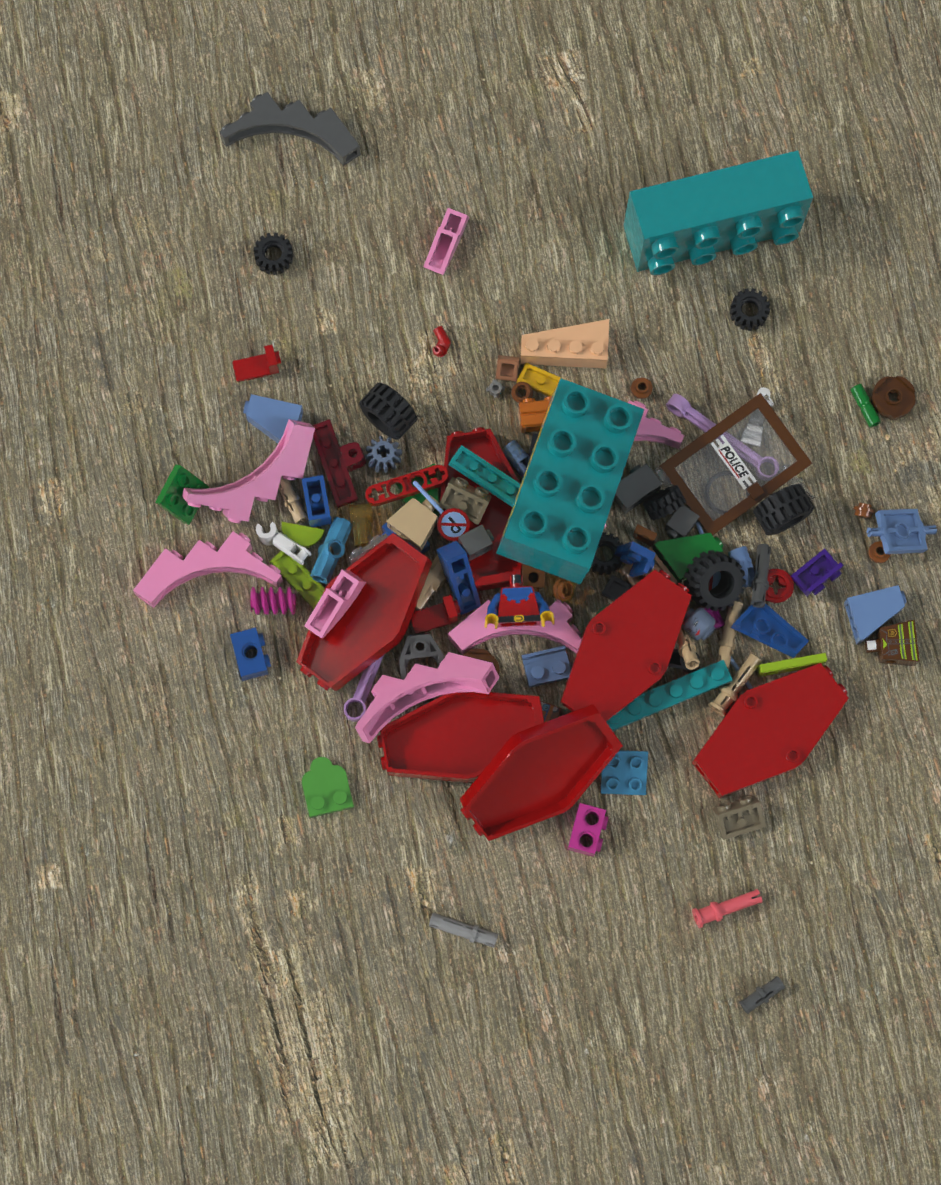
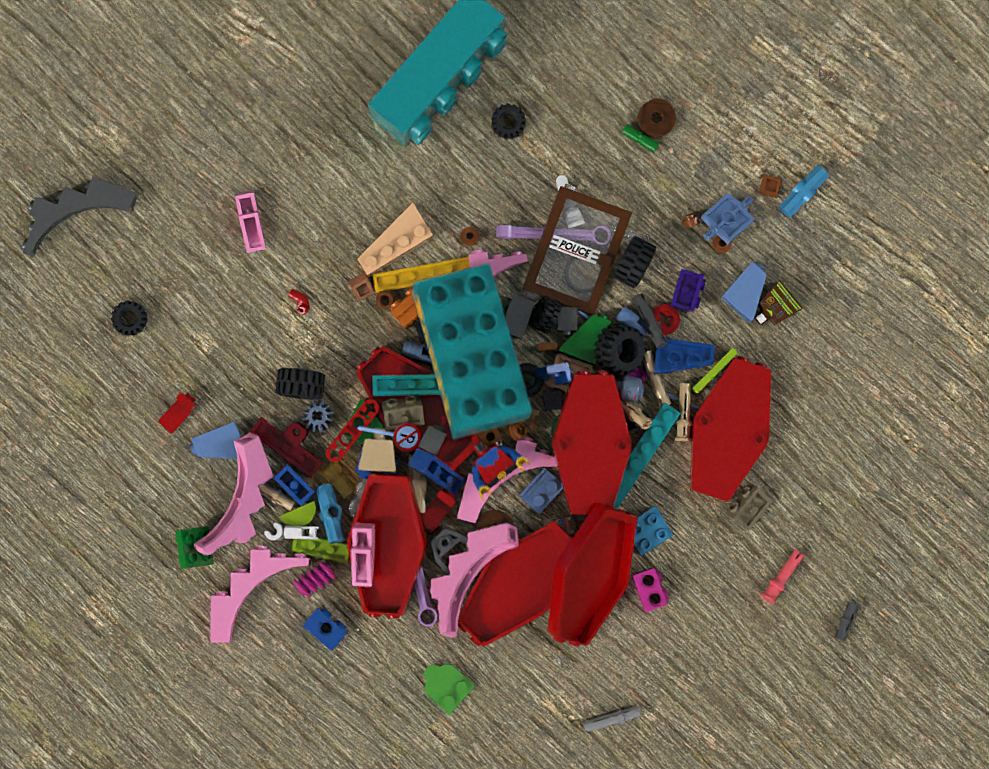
camera: 35 degrees left, 10 degrees up
(495, 388) = (363, 309): light grey piece -> none

